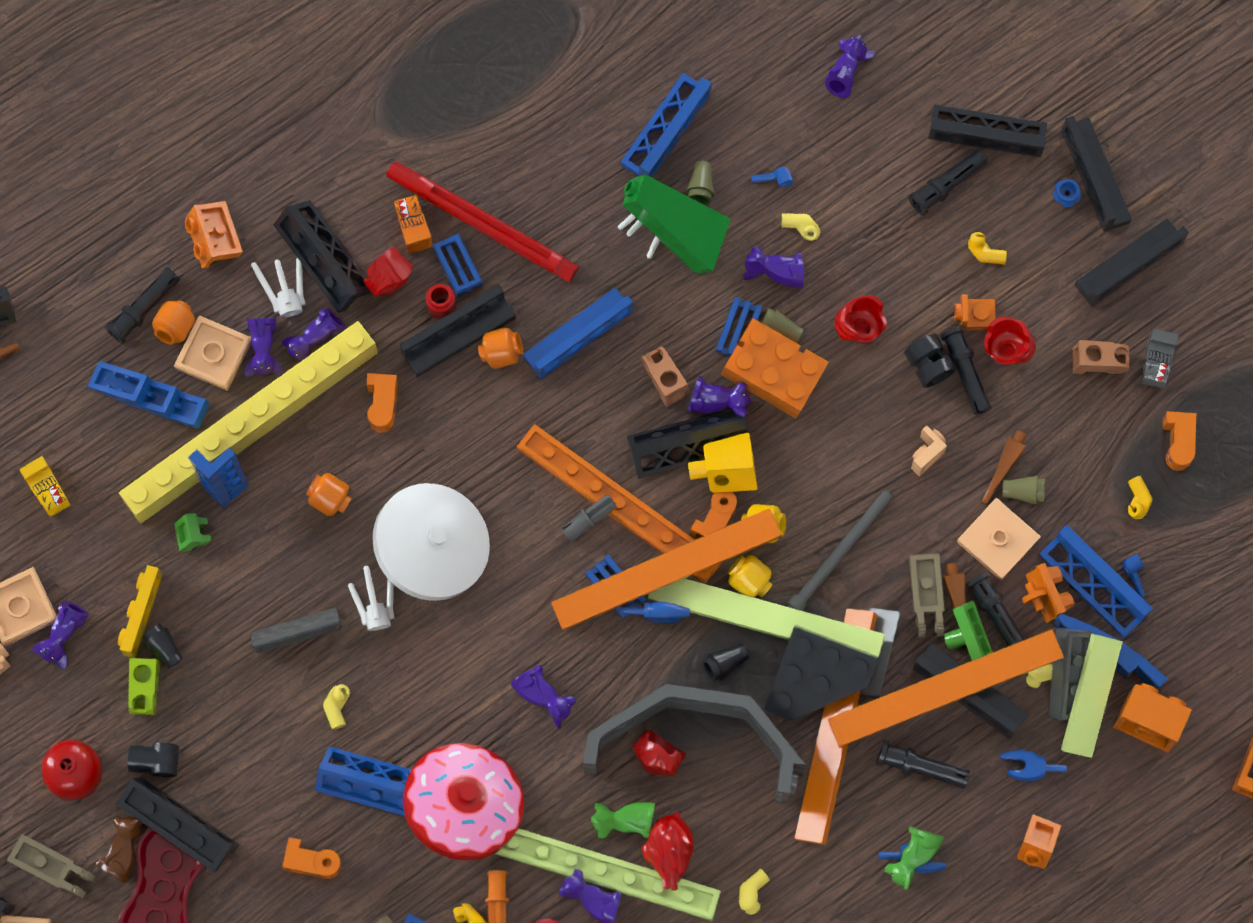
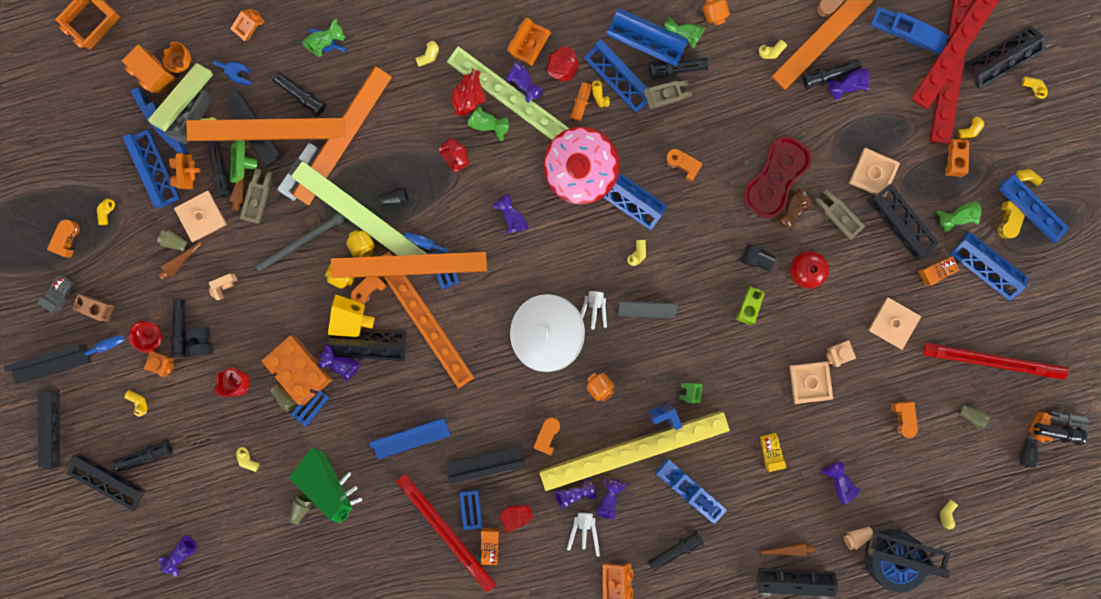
camera: 165 degrees left, 15 degrees up
(68, 620) = (781, 364): dark purple animal -> none
(139, 611) = (739, 353): yellow plate -> none
(161, 644) = (731, 327): black cone -> none
(173, 322) = (660, 532): orange head -> none
(176, 823) = (756, 213): black fence -> none
(213, 353) = (642, 504): light nougat plate -> none
(318, 255) = (555, 545): black fence -> none
(440, 294) = (489, 493): red brick -> none
(501, 348) = (462, 444): orange head -> none
(588, 518) = (445, 315): dark grey axle -> none
(665, 376) = (366, 390): nougat leg -> none
(671, 130) = (300, 553): blue fence -> none
(704, 702) = (379, 119): dark grey panel -> none
(781, 174) = (245, 496): blue hand -> none
(783, 270) = (268, 433): dark purple animal -> none
(817, 674) = (340, 168): black plate -> none
(1060, 314) = (106, 344): none -> blue hand
(1070, 186) = (66, 422): blue plate -> none
(1122, 752) = (176, 58): none -> orange hair
(1131, 567) = (127, 170): blue hand -> none

